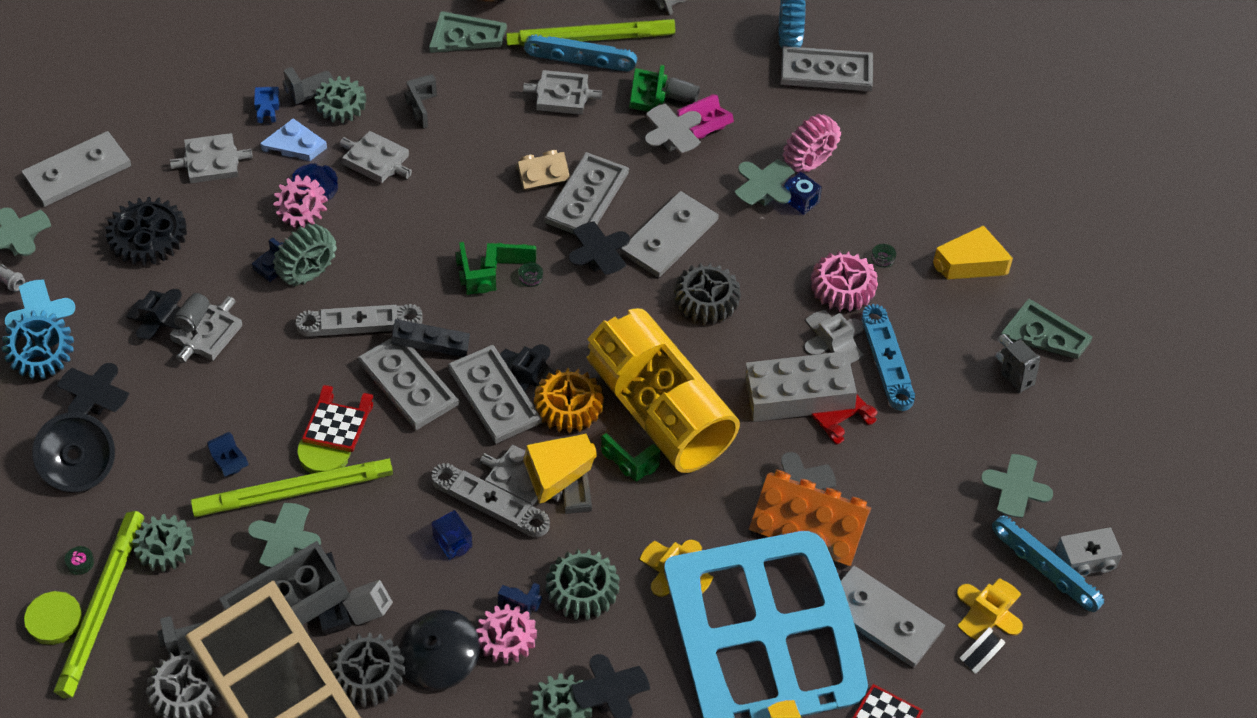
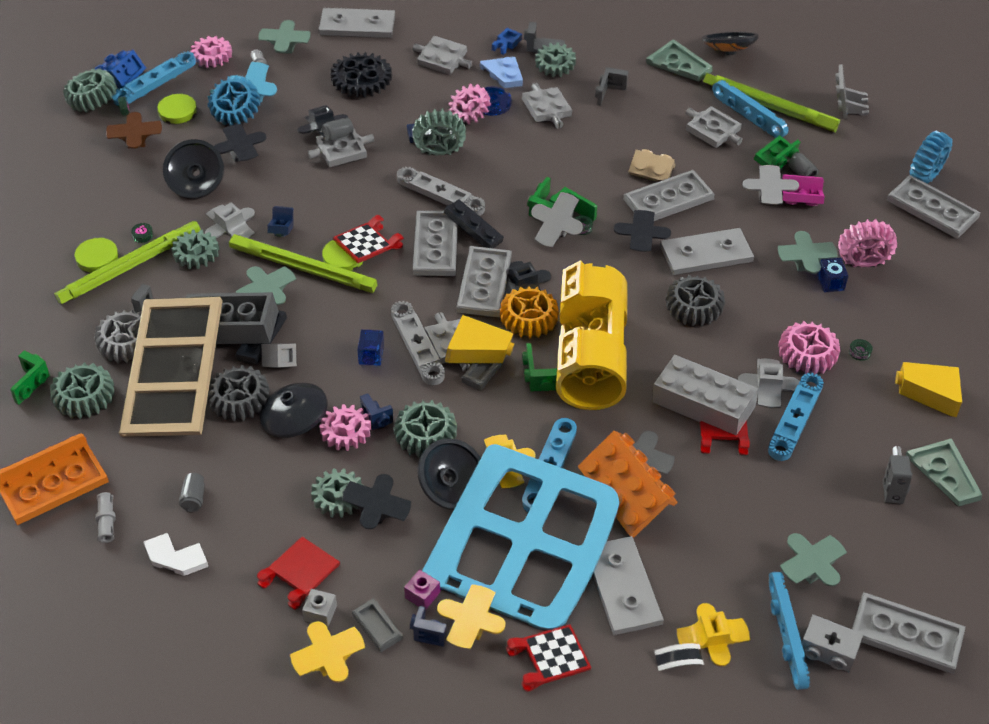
camera: 40 degrees right, 5 degrees down
(164, 487) = (230, 221): none -> light grey piece
(510, 284) = (557, 220): none -> light grey piece
(649, 613) = (447, 458): none -> black dish
(714, 529) = (554, 451): none -> dark azure piece
(1134, 501) = (909, 632): none -> light grey plate

